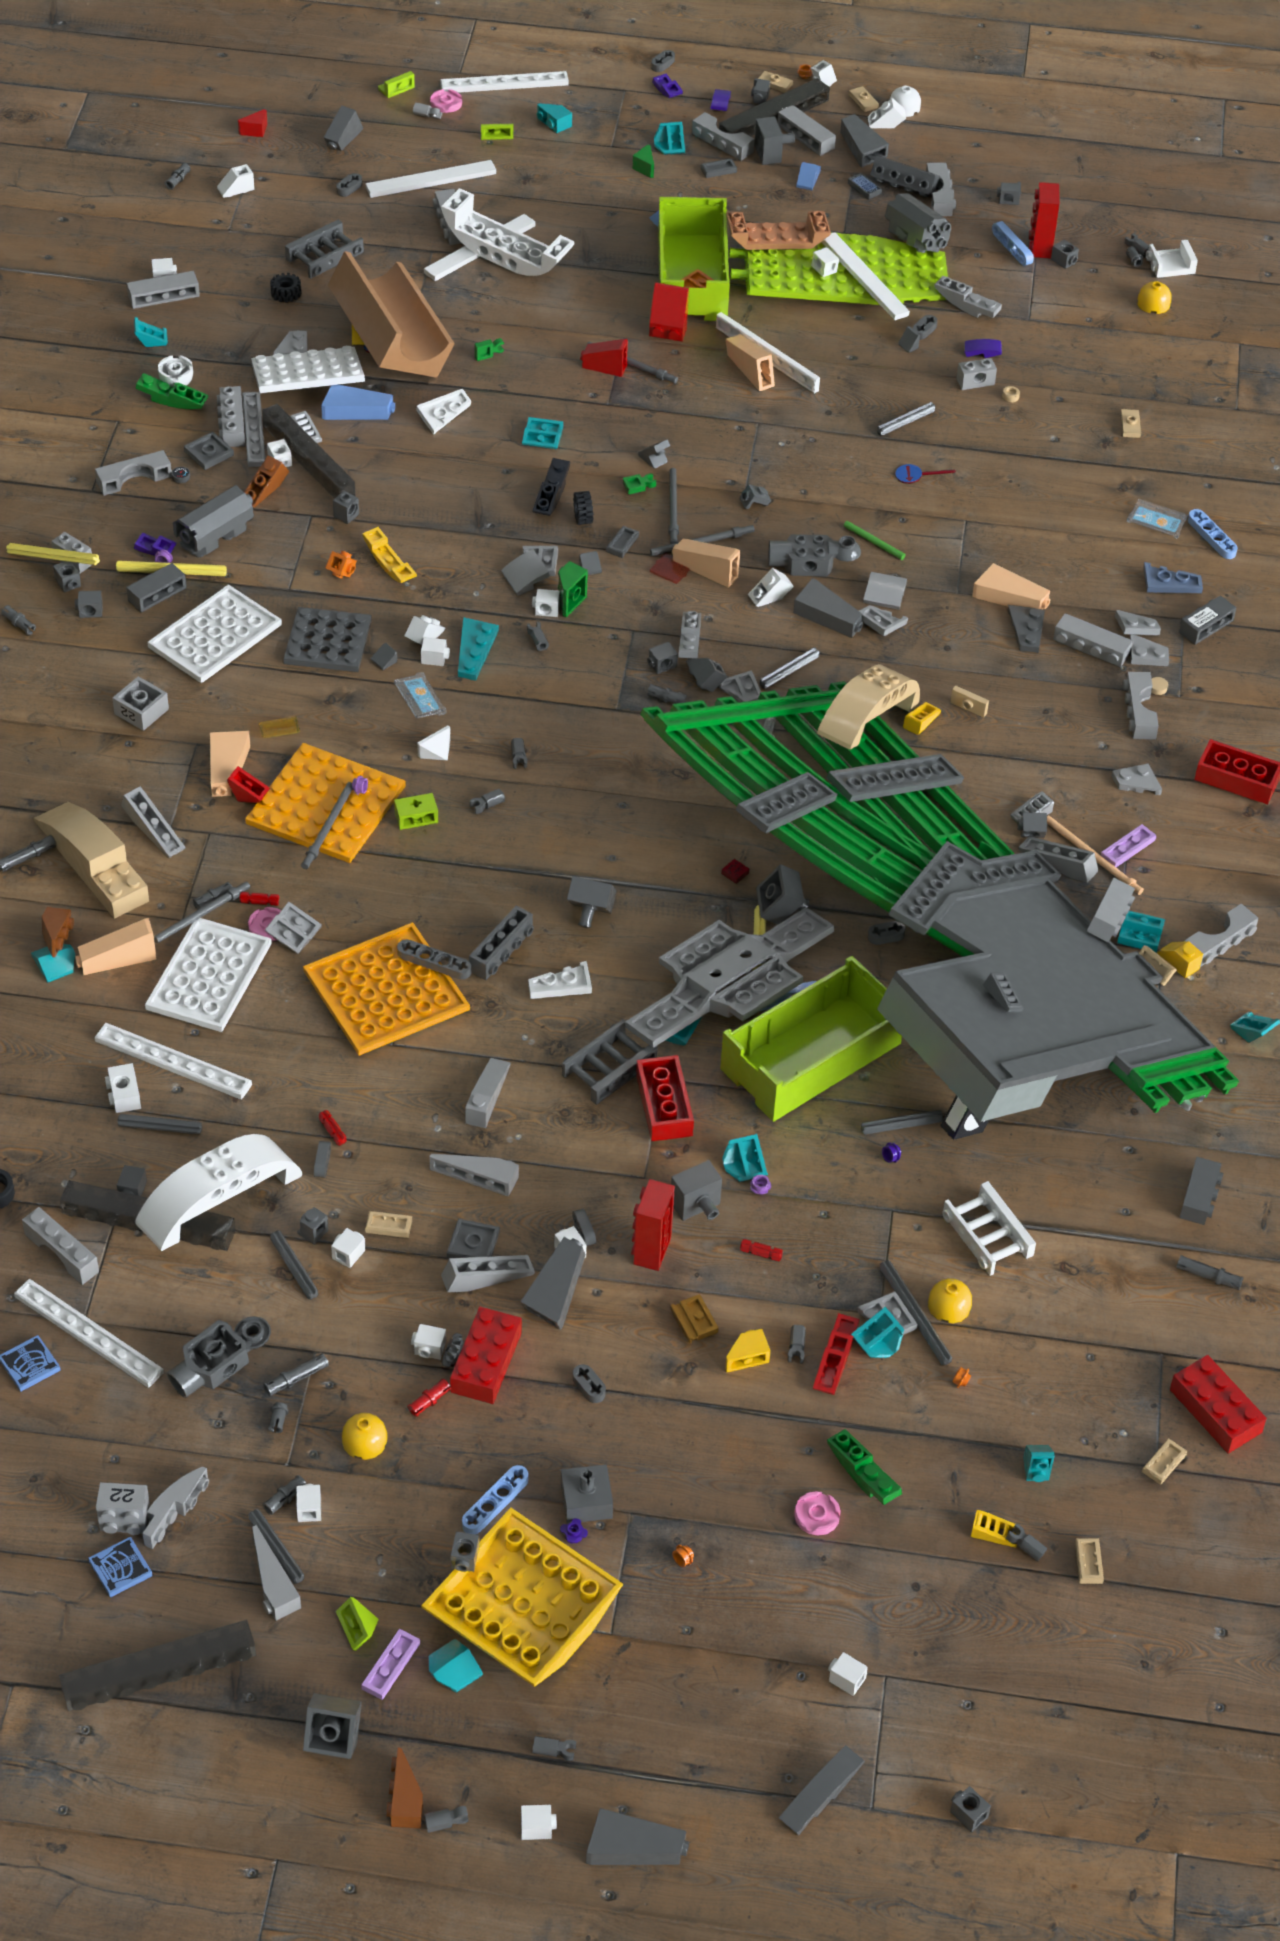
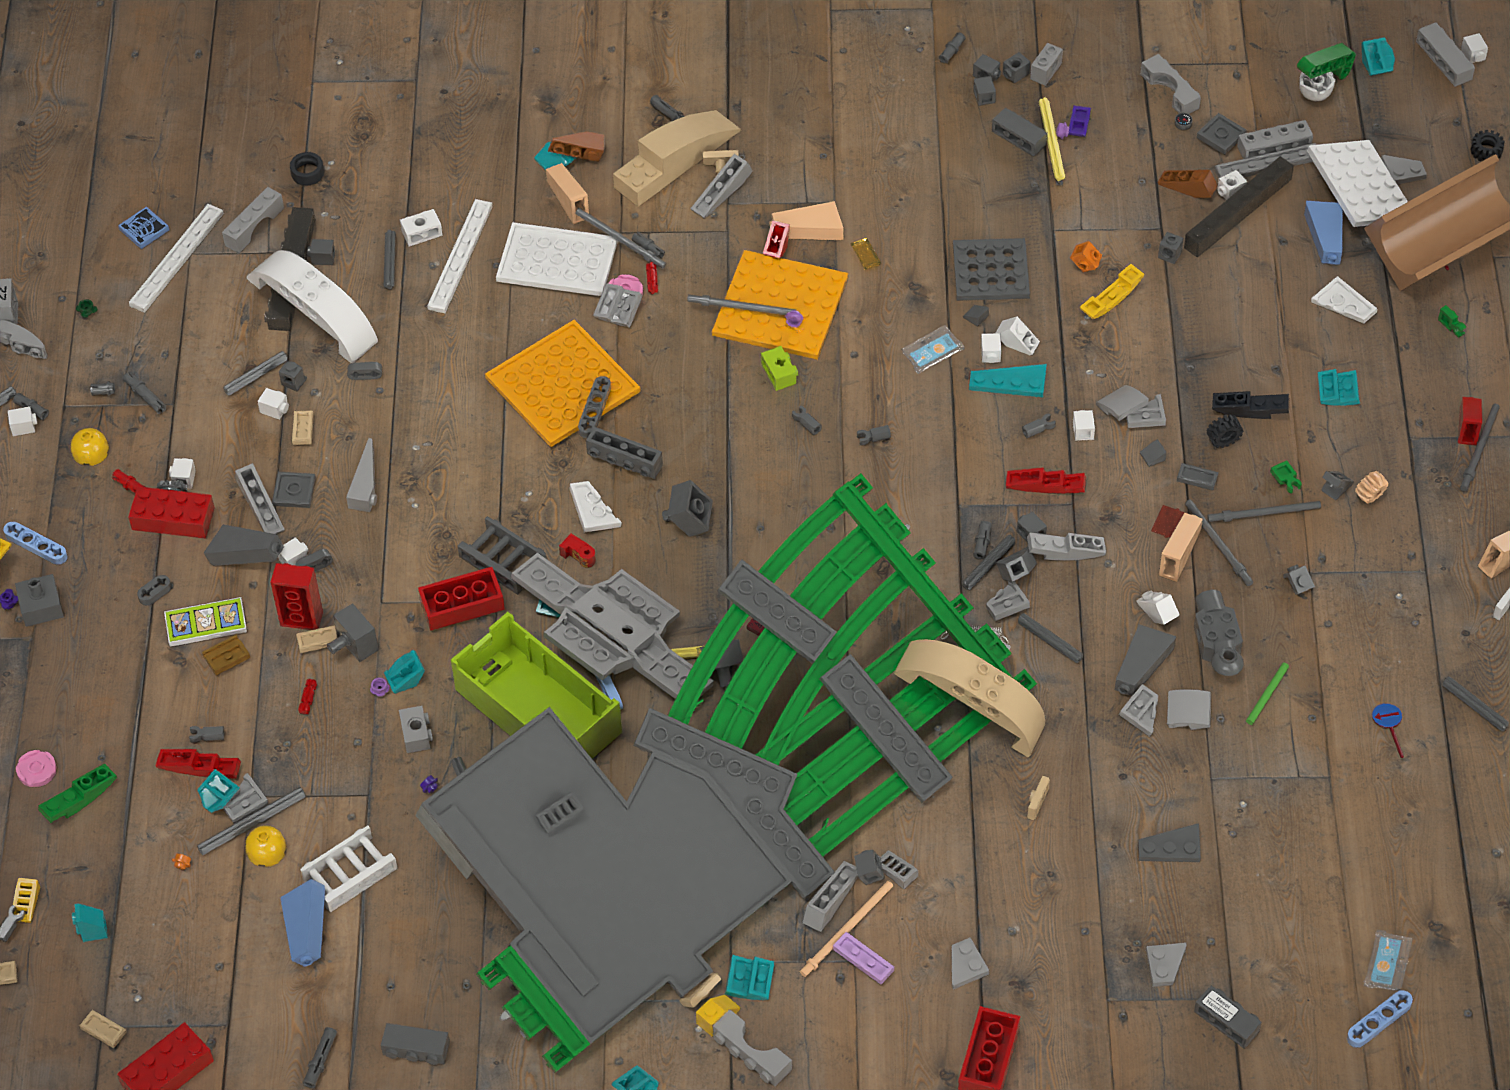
camera: 85 degrees right, 5 degrees up
(54, 554) = (1033, 48): light yellow axle -> none
(60, 597) = (986, 67): none -> dark grey brick
(113, 819) = (717, 158): none -> tan tile
(140, 703) = (862, 148): light grey brick -> none
(140, 1424) = (86, 308): none -> dark green plate
(158, 353) = (1333, 59): none -> green beam
(177, 396) = (1291, 90): green slope -> none
(214, 633) = (972, 185): white plate -> none
(217, 518) = (1104, 146): dark grey brick -> none
(217, 1354) = (153, 336): dark grey brick -> none
(307, 425) = (1285, 191): light grey slope -> none
(332, 1127) = (402, 373): red axle -> none
(436, 745) = (868, 371): white slope -> none
(486, 1093) = (449, 470): light grey slope -> none
(572, 587) = (1099, 436): green slope -> none
(606, 640) = (1045, 482): none -> red slope
(615, 998) = (578, 550): none -> red leg
(643, 1337) = (205, 621): none -> tile
(669, 428) = (1371, 487): none -> light nougat gear
(684, 688) = (994, 556): none -> dark grey axle
(688, 1233) = (316, 638): none -> tan plate
(748, 1351) = (194, 696): yellow slope -> none
(822, 1157) = (415, 739): none -> light grey brick
(918, 719) = (1000, 762): yellow slope -> none
(1008, 588) = (1222, 818): light nougat slope -> none
(1052, 1266) = (304, 921): none -> medium blue slope
(1092, 640) = (1163, 905): light grey brick -> none
(1112, 910) = (756, 938): light grey brick -> none
(1137, 624) = (1202, 948): light grey wing -> none
(1142, 721) = (1097, 952): light grey arch -> none
(1159, 686) = (1114, 976): tan tile -> none
(1165, 581) = (1283, 975): sand blue wing -> none

